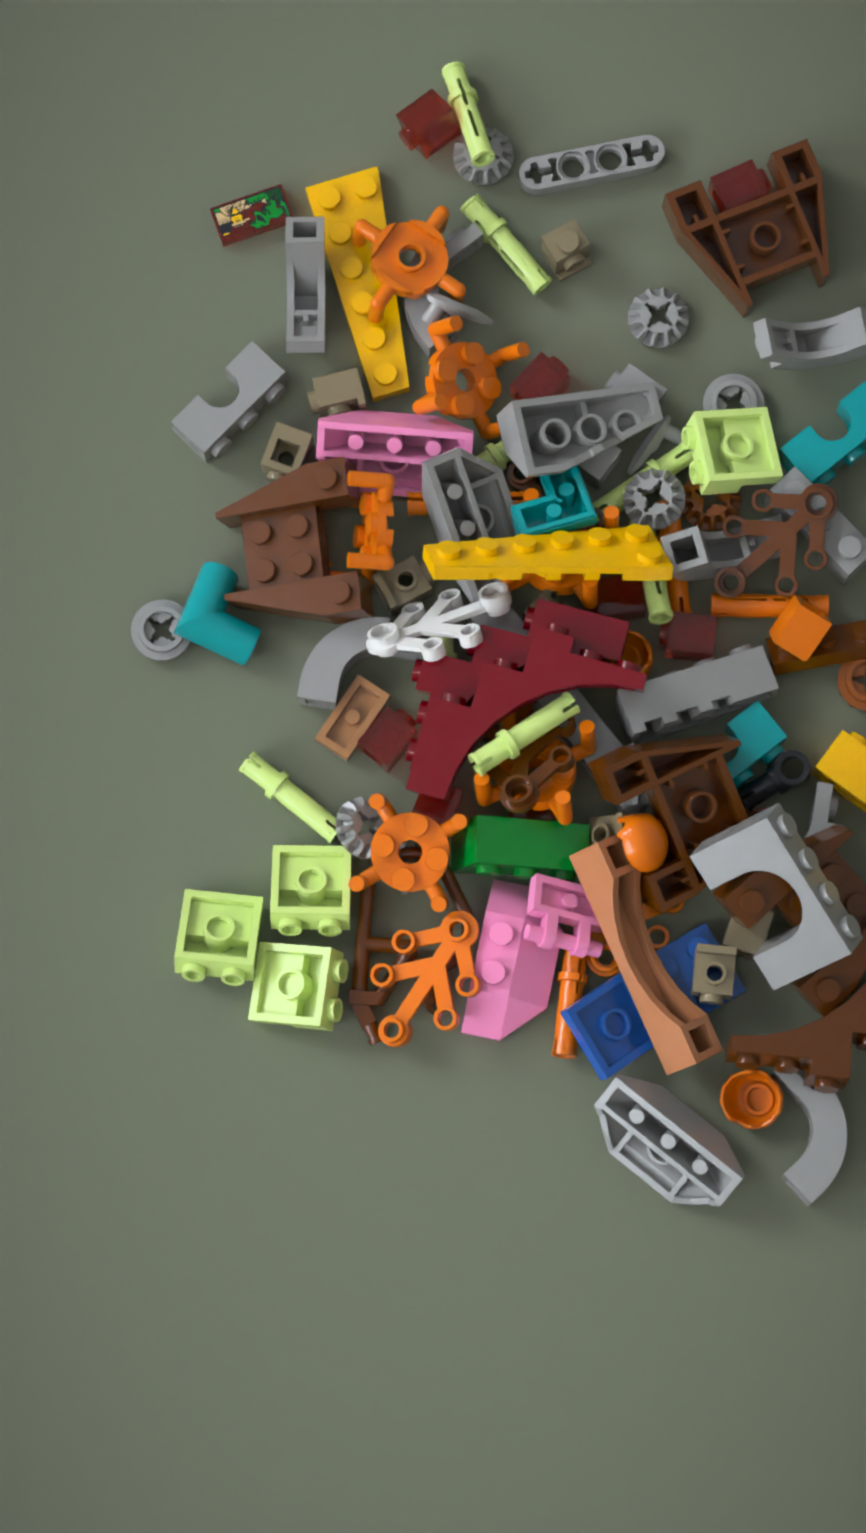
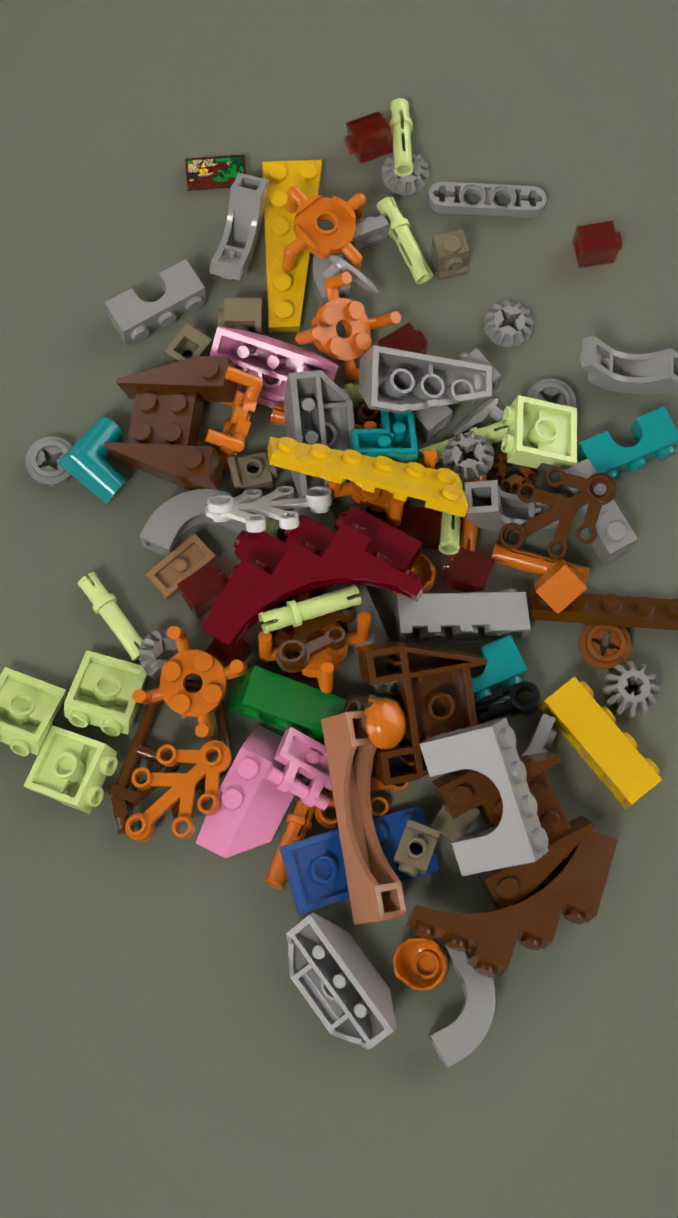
camera: 10 degrees right, 5 degrees down
(758, 237) = (604, 279): reddish brown wedge -> none

